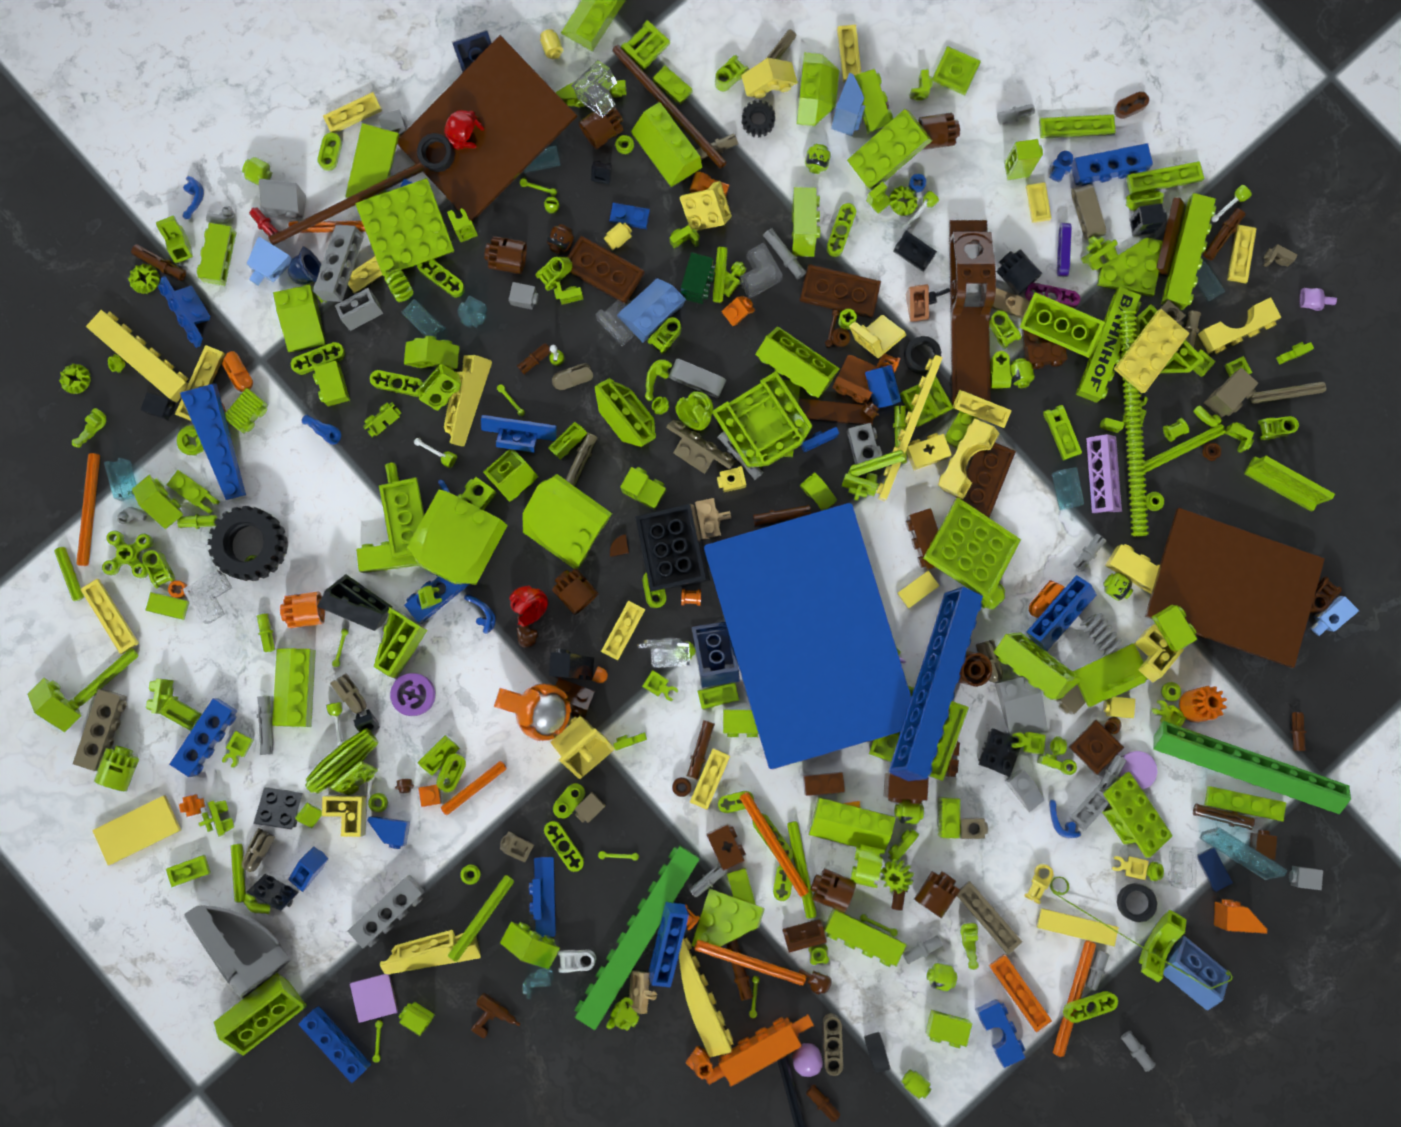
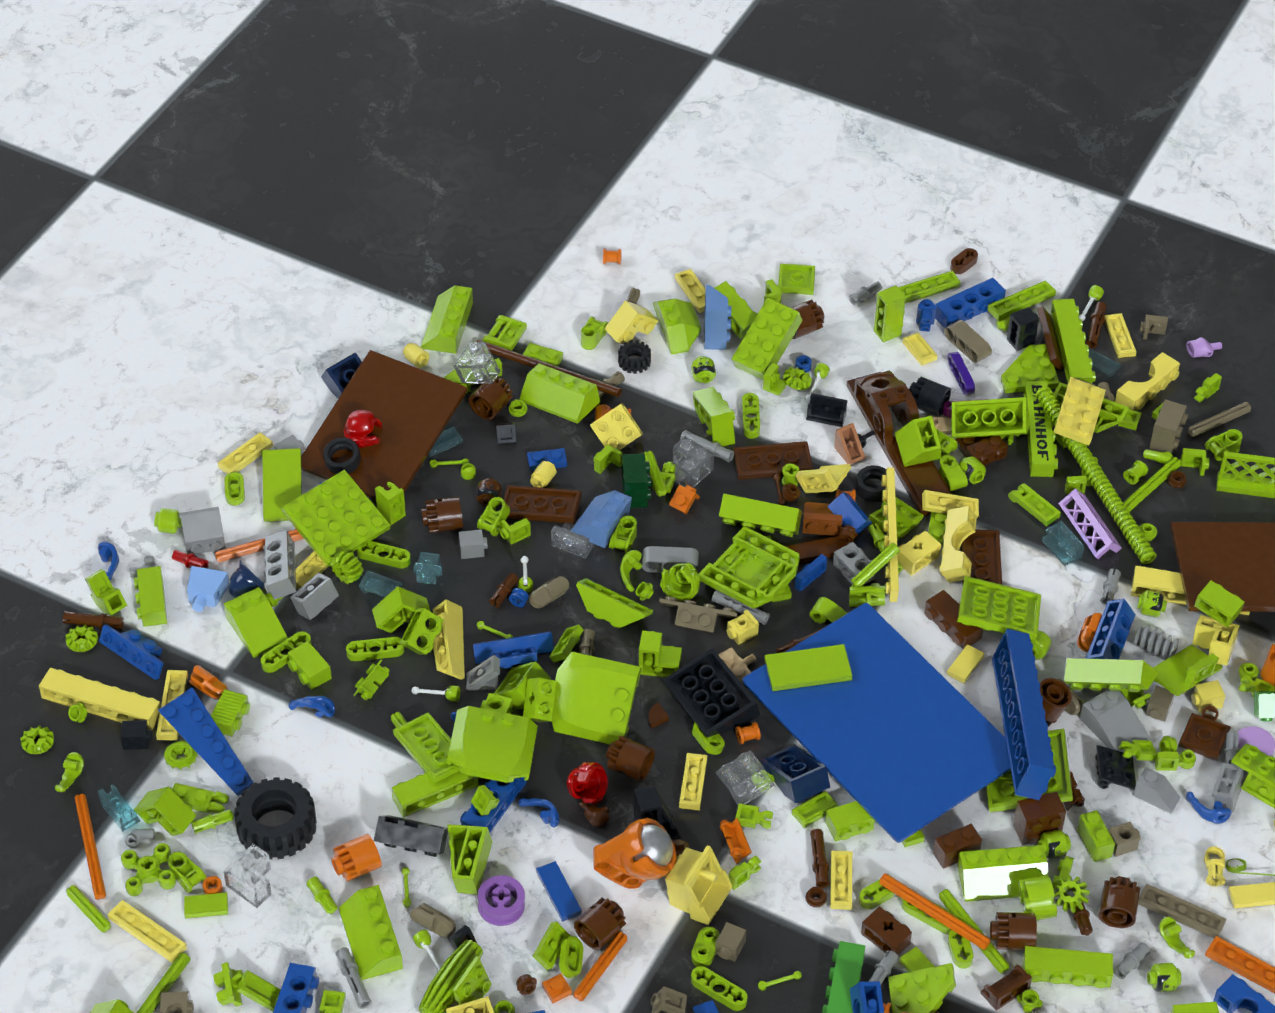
camera: 20 degrees left, 35 degrees down
(346, 204) = (265, 521): reddish brown piece -> none
(466, 699) = (558, 891): none -> blue tile
(481, 451) = (484, 675): none -> light grey slope
(485, 752) = (600, 923): none -> reddish brown gear
(515, 503) = (539, 699): none -> lime brick
(544, 372) = (518, 597): none -> blue bush
(600, 675) = (687, 826): orange hinge -> none
(635, 712) = (735, 839): none -> orange hinge
(766, 558) = (808, 667): none -> lime tile
(980, 330) = (918, 442): none -> lime slope
(1106, 248) = (988, 361): lime hips -> none

